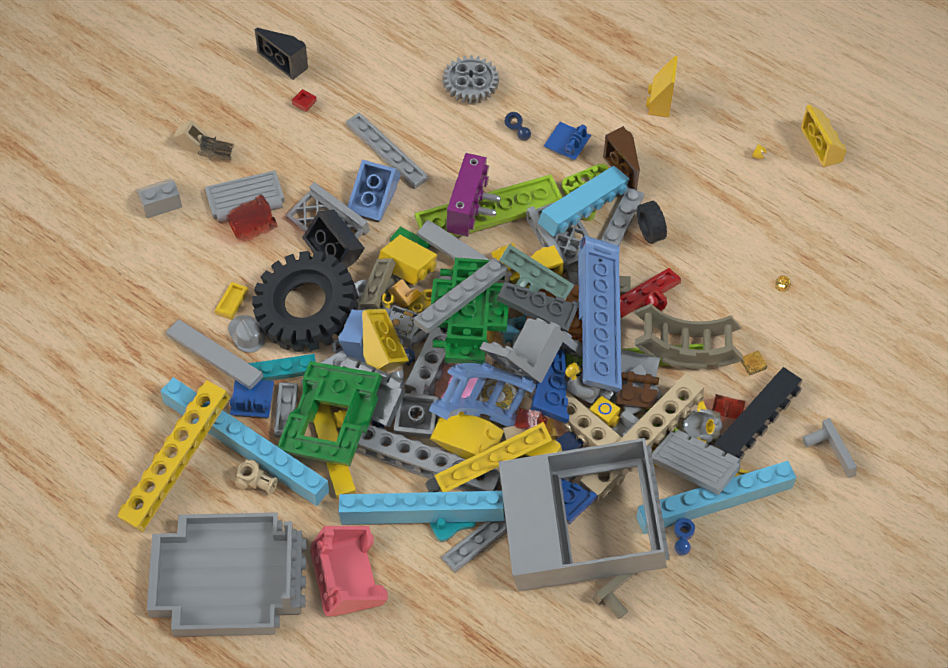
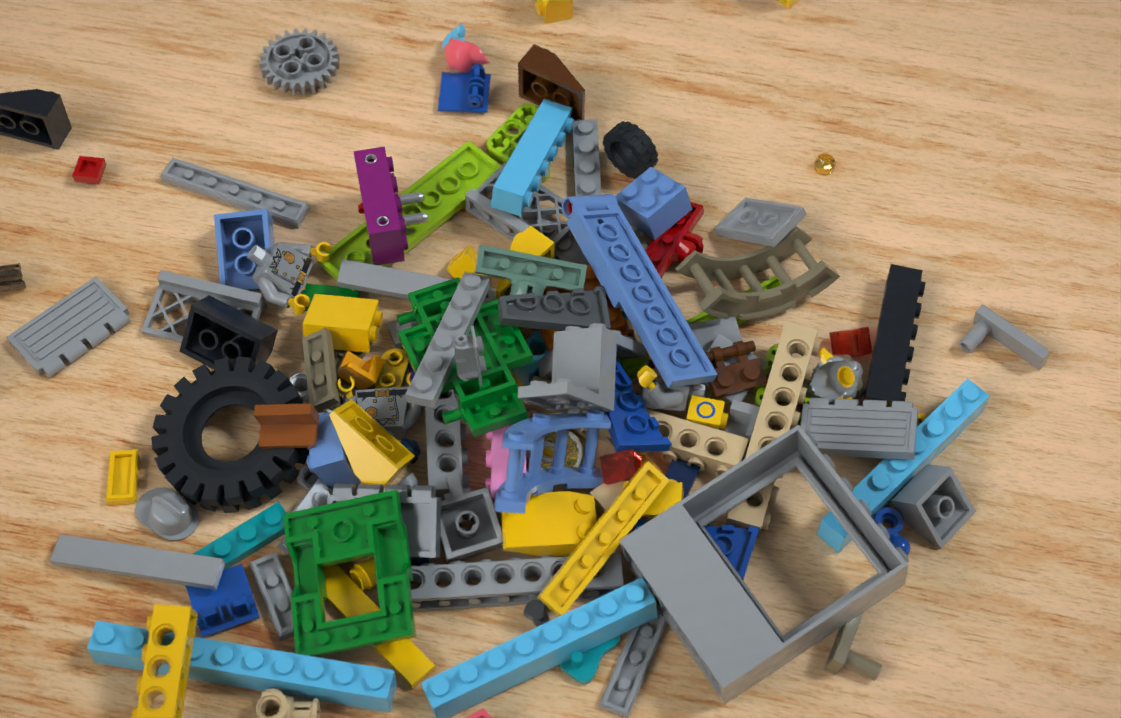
camera: 25 degrees left, 0 degrees up
(251, 219) = (97, 353): clear red piece -> none
(336, 308) = (287, 425): none -> dark orange panel
(389, 212) = (284, 270): none -> light grey torso
(462, 310) = (467, 356): none -> light grey hinge
(523, 132) = (404, 103): dark blue plate -> none
(577, 111) = (461, 54): none -> coral hair
(647, 262) = (653, 203): none -> medium blue brick
(711, 303) = (760, 221): none -> light grey tile
(721, 531) = (934, 504): none -> light grey slope
(754, 363) = (850, 275): clear yellow plate -> none
(758, 152) = (705, 18): yellow hinge -> none

